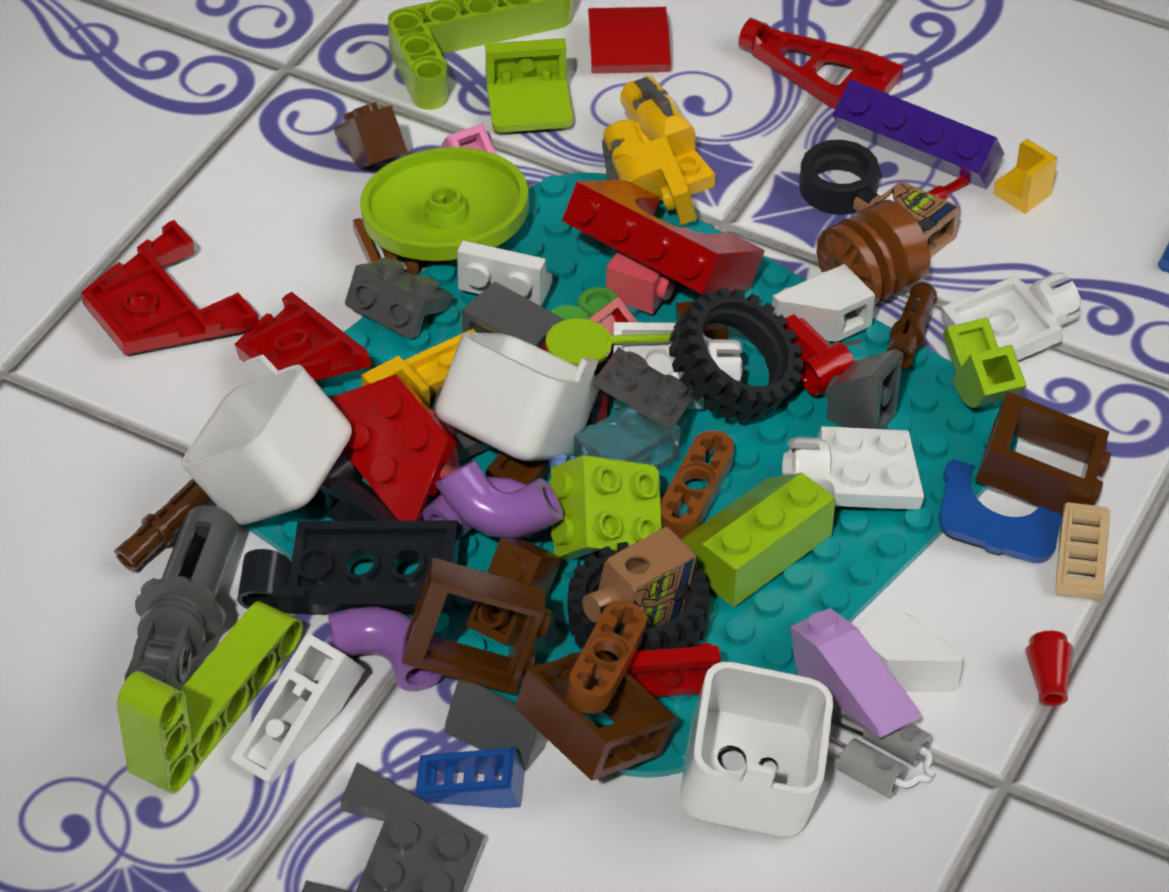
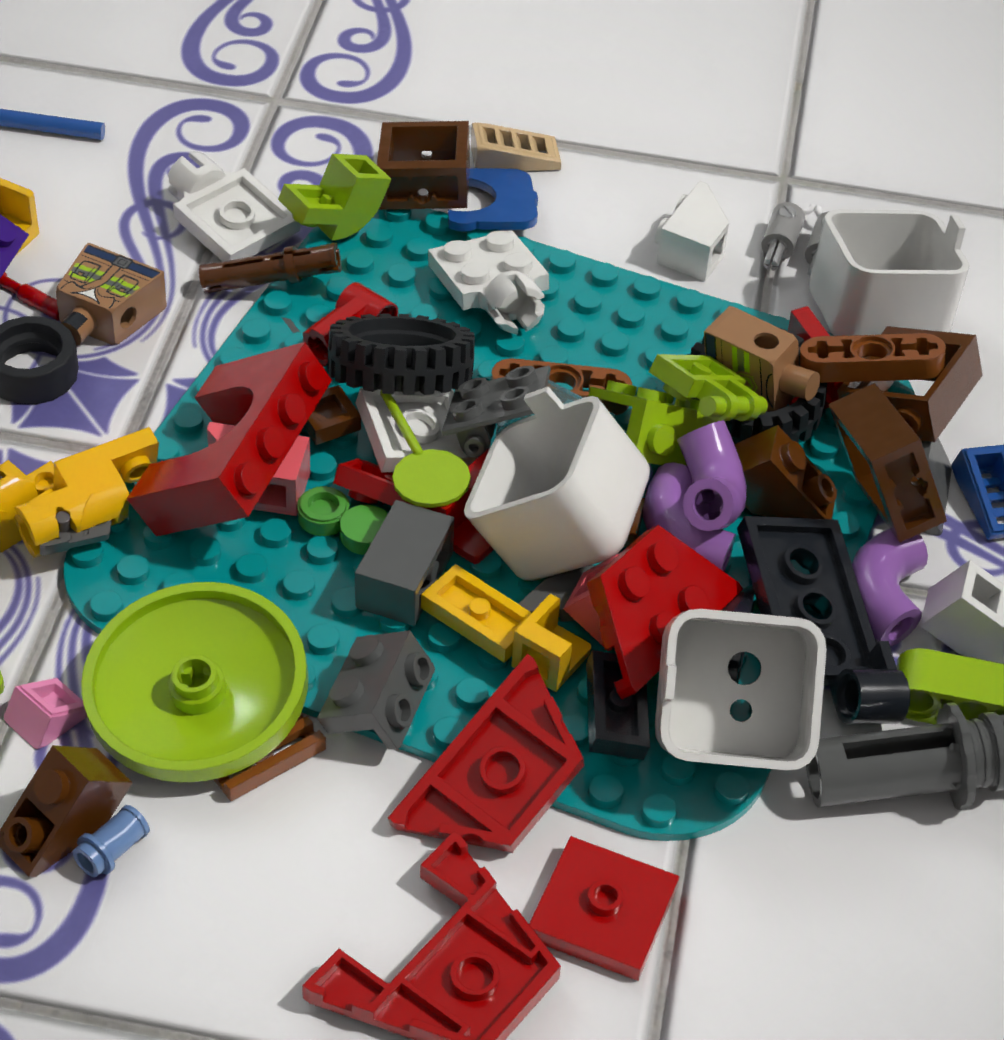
camera: 110 degrees left, 0 degrees up
(160, 527) = (815, 820): reddish brown pin -> none
(167, 391) = (604, 907): none -> red plate
(330, 152) = (99, 850): none -> medium blue pin
(484, 265) = (317, 584): white bracket -> none
(612, 509) = (718, 387): none -> lime plate
(761, 534) = (613, 322): lime slope -> none
(831, 302) = (265, 314): white slope -> none
(858, 680) = (750, 248): lavender slope -> none
(866, 392) = (408, 259): dark grey slope -> none
(879, 246) = (186, 293): dark orange wheel -> none
(1050, 664) = (657, 152): red cone -> none

